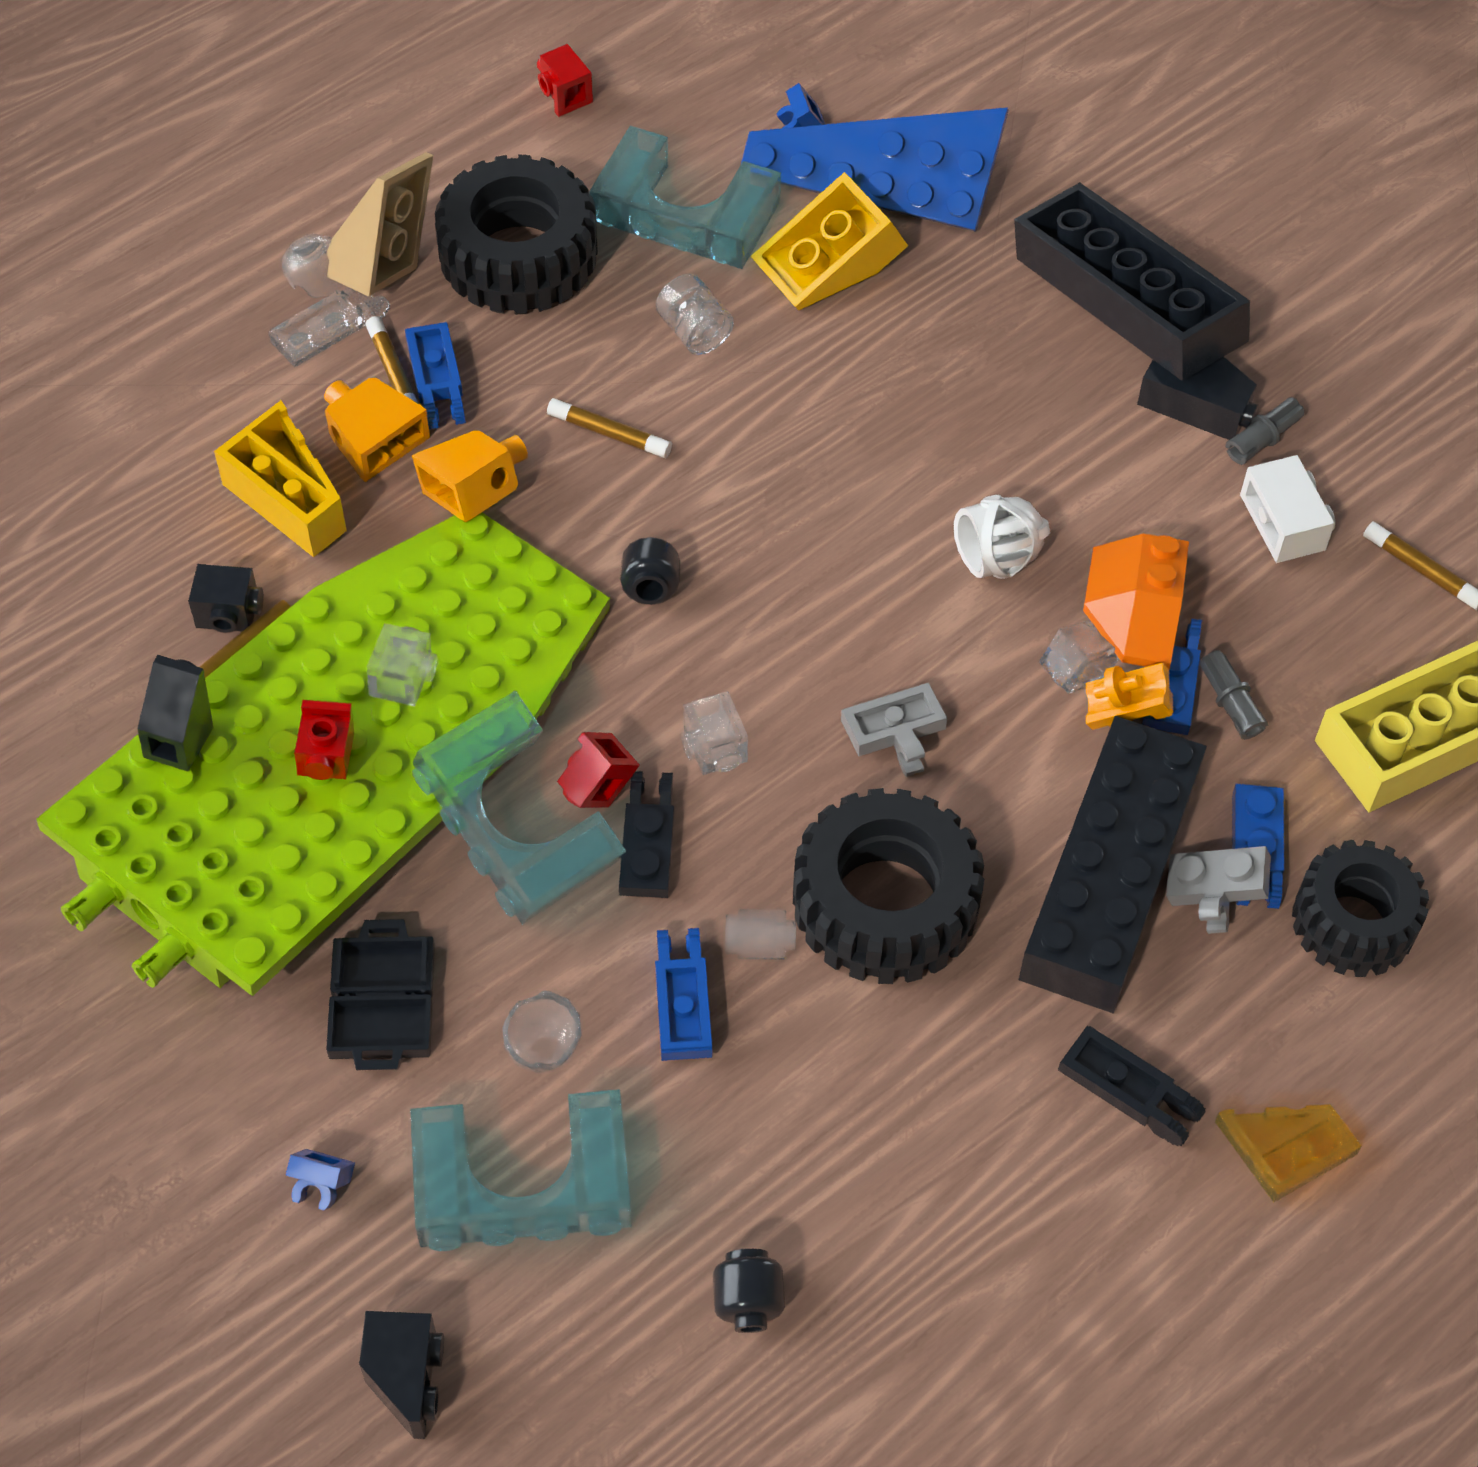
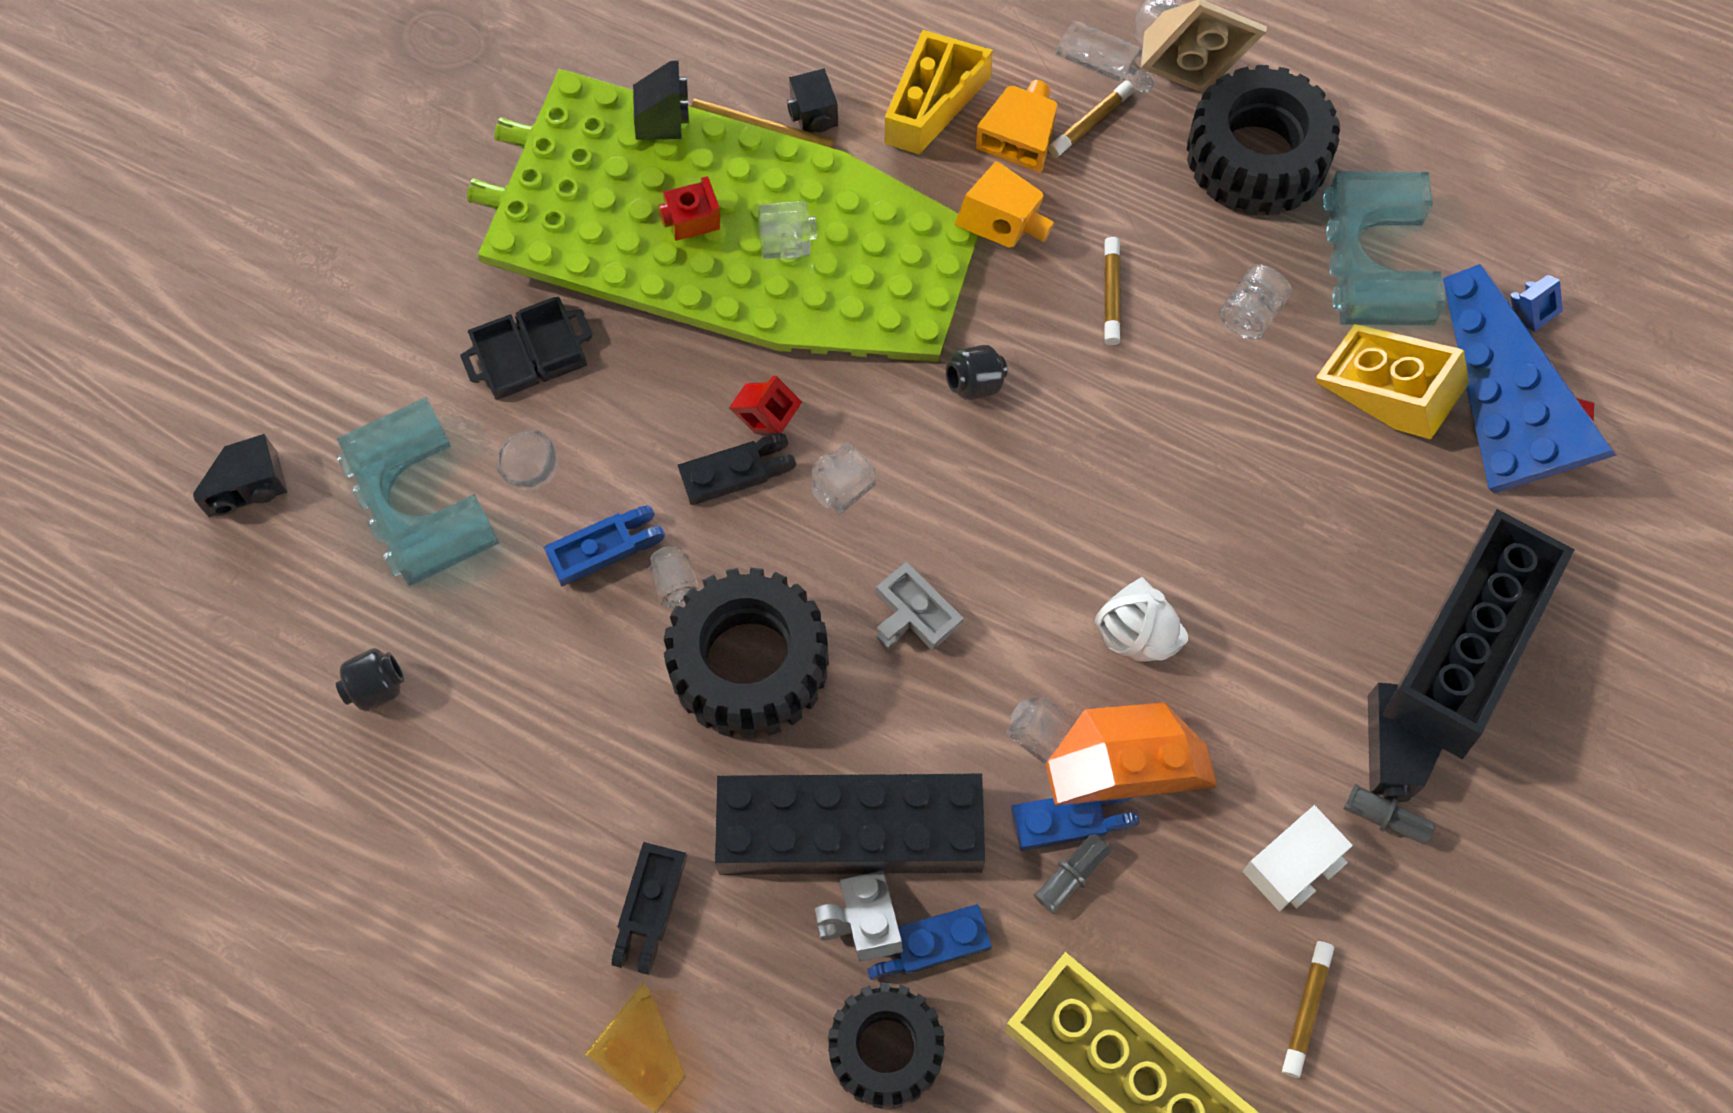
camera: 70 degrees right, 10 degrees up
(320, 1171) = (370, 365): tile -> none
(435, 370) = (1098, 147): blue hinge -> none
(525, 874) = (698, 307): clear light blue arch -> none
(565, 79) = (1460, 108): red brick -> none
(1129, 695) = (1014, 783): light orange hips -> none

